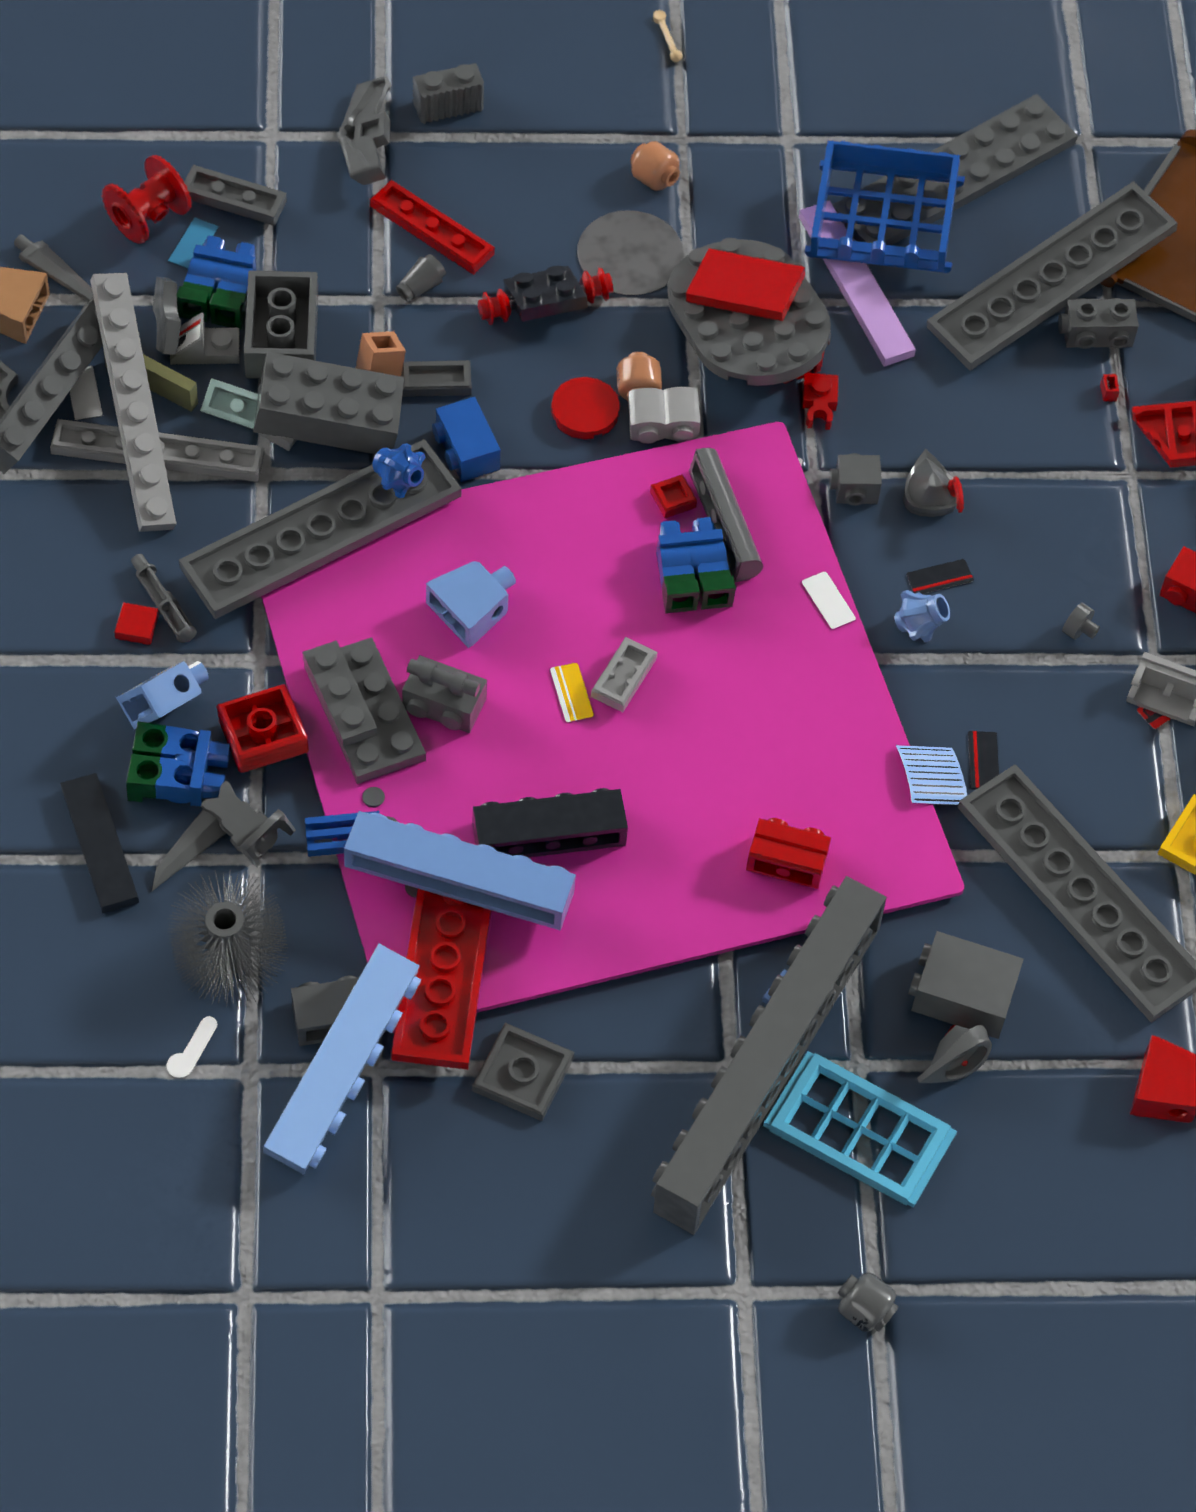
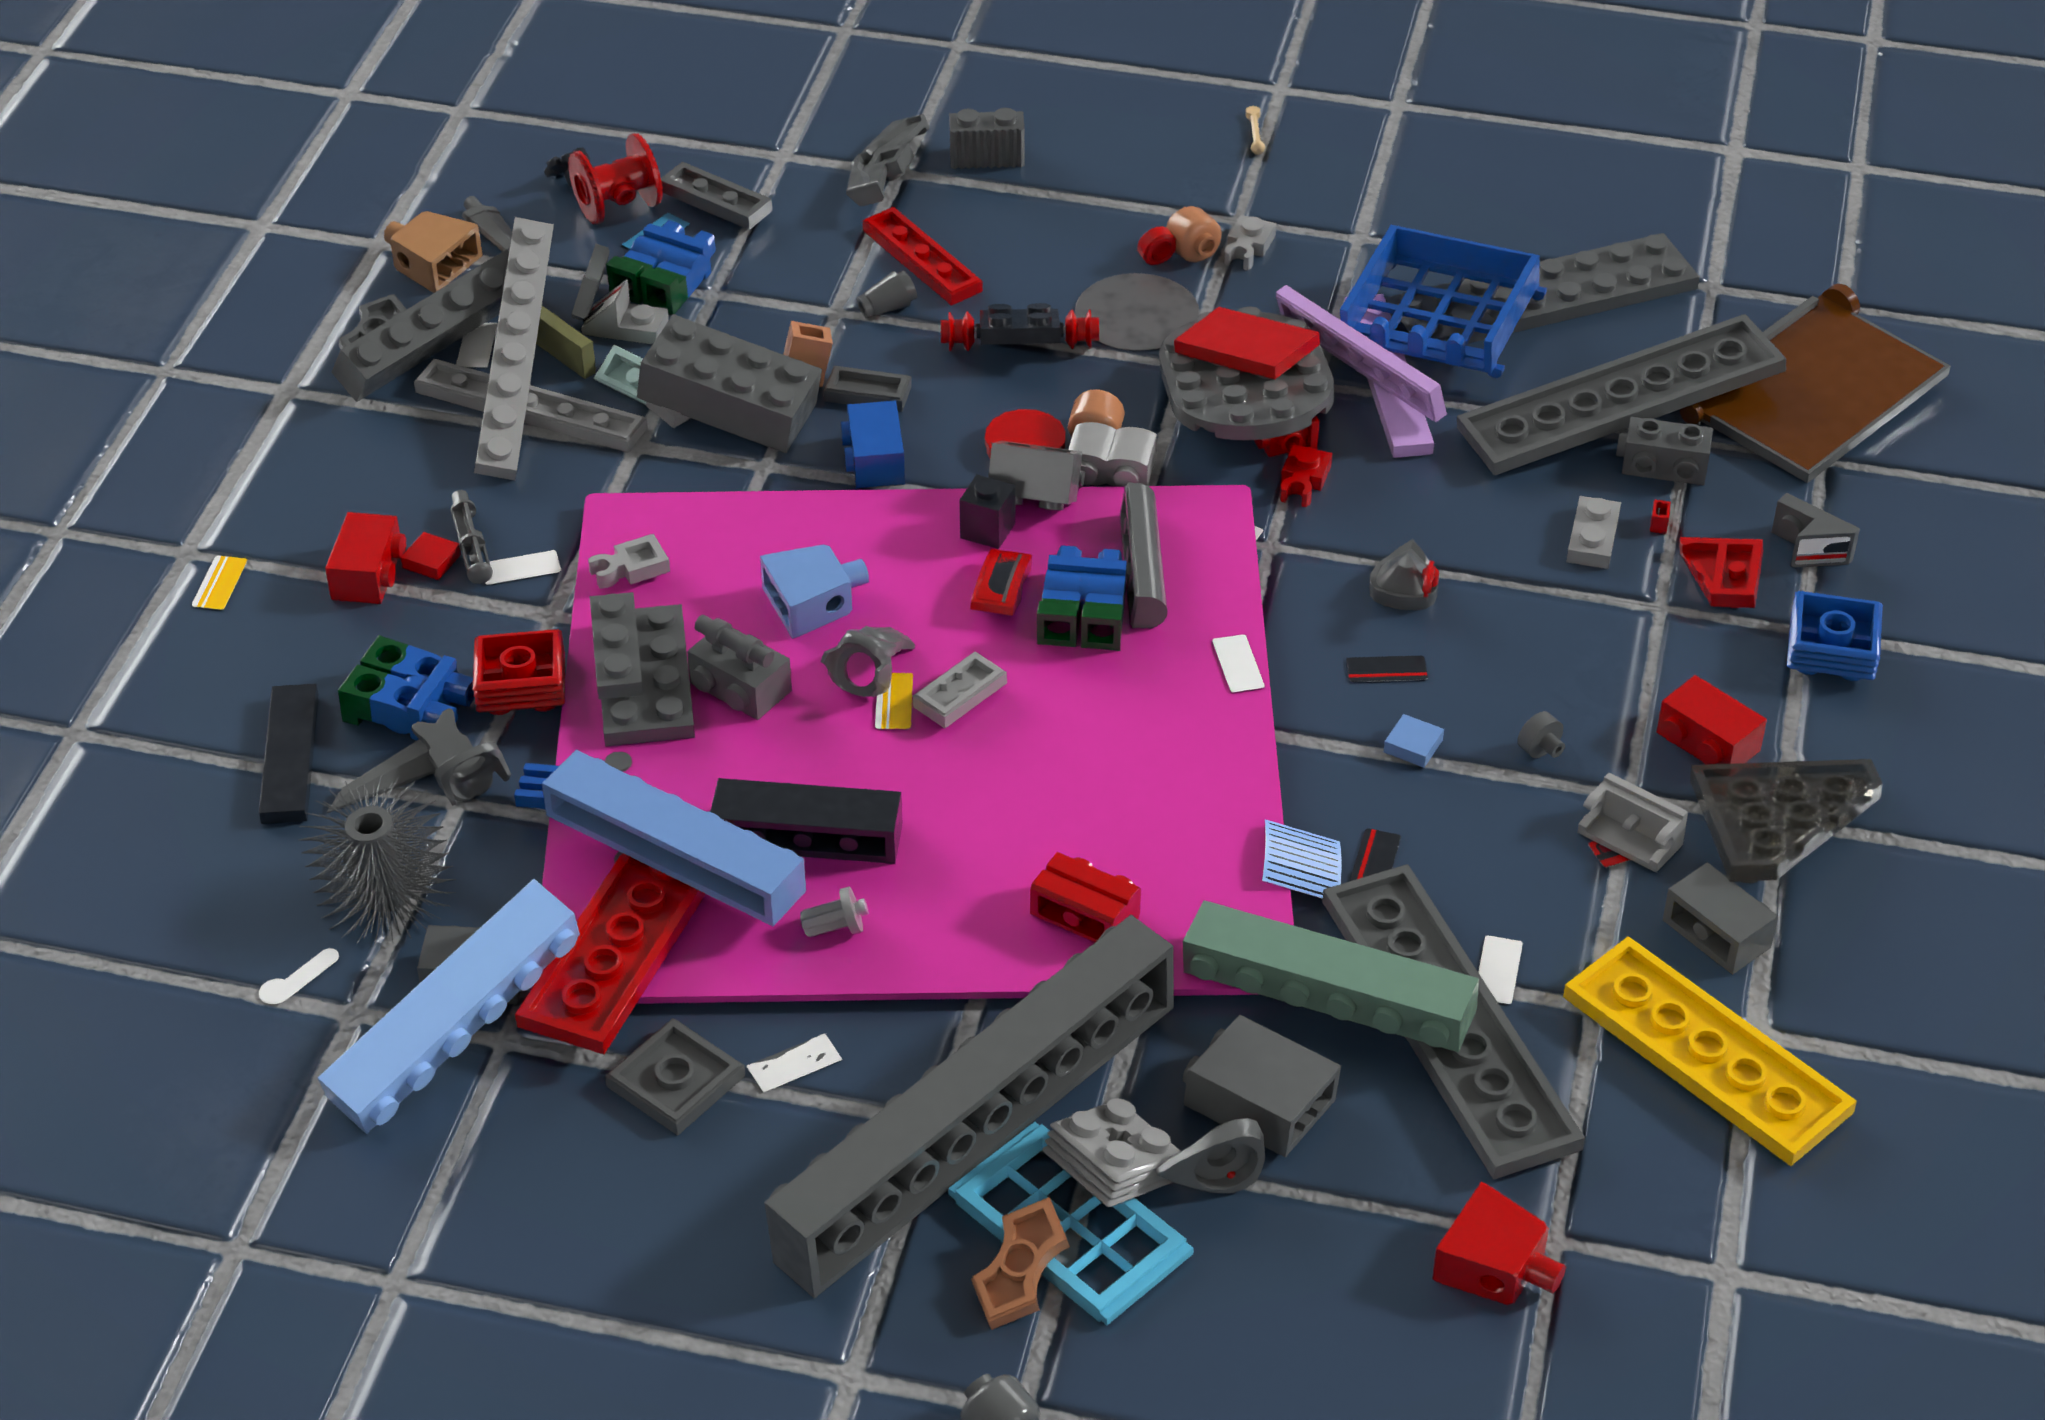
camera: 20 degrees right, 15 degrees down
(86, 640) = (365, 558): none -> red brick
(92, 187) = (559, 166): none -> black plant
(163, 692) = (422, 612): medium blue torso -> none
(207, 624) = (524, 567): none -> white sticker
(280, 317) = (716, 292): dark grey brick -> none
(311, 534) = (669, 494): dark grey plate -> none
(316, 600) = (633, 559): none -> light grey plate
(399, 468) = (775, 444): blue rock -> none
(546, 646) = (876, 642): none -> dark grey hair
(589, 496) = (987, 511): none -> black brick
(601, 907) = (835, 915): none -> light grey piece
(607, 1038) = (794, 1062): none -> white sticker
(616, 452) = (1038, 472): none -> dark grey brick
(621, 562) = (1001, 582): none -> red slope
(629, 183) = (1157, 245): none -> red tile
(673, 496) = (1090, 531): red tile -> none
(700, 160) = (1249, 238): none -> light grey plate
(836, 1193) = (1010, 1282): none -> nougat tile
(838, 274) = (1365, 355): none -> lavender tile
(856, 479) = (1316, 552): dark grey brick -> none
(878, 1068) = (1110, 1151): none -> light grey brick
(921, 614) = (1344, 692): medium blue rock -> none
(982, 643) = (1413, 740): none -> medium blue tile
(993, 882) = (1331, 975): none -> sand green brick
(1062, 412) = (1593, 532): none -> light grey plate
(1102, 835) = (1500, 966): none -> white sticker

